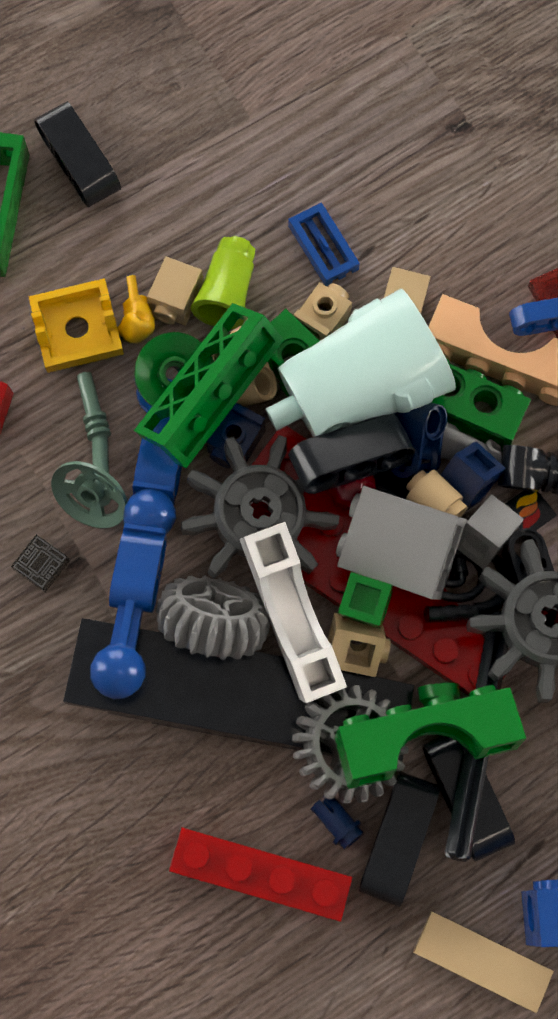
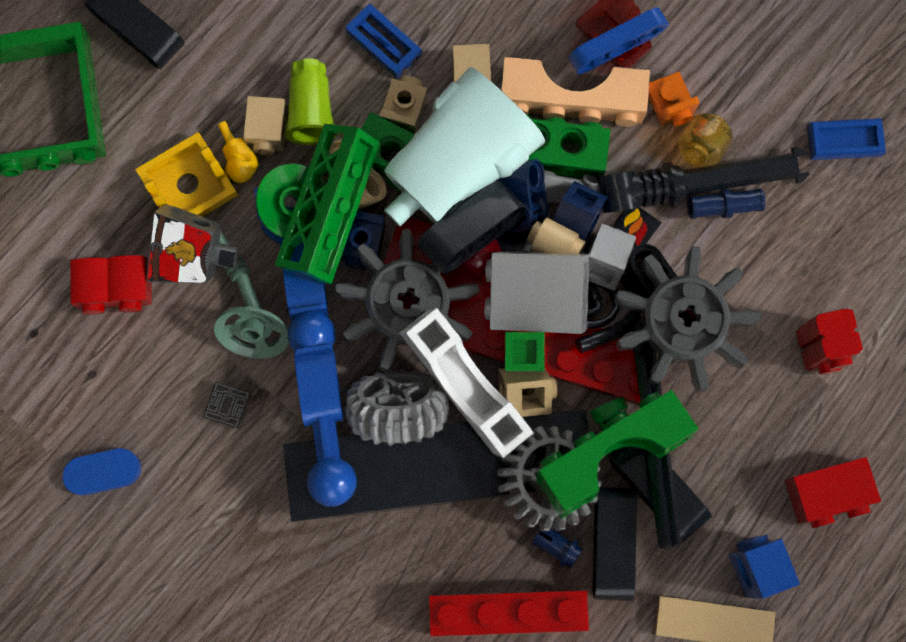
camera: 20 degrees left, 5 degrees up
(52, 388) = (186, 247): none -> torso

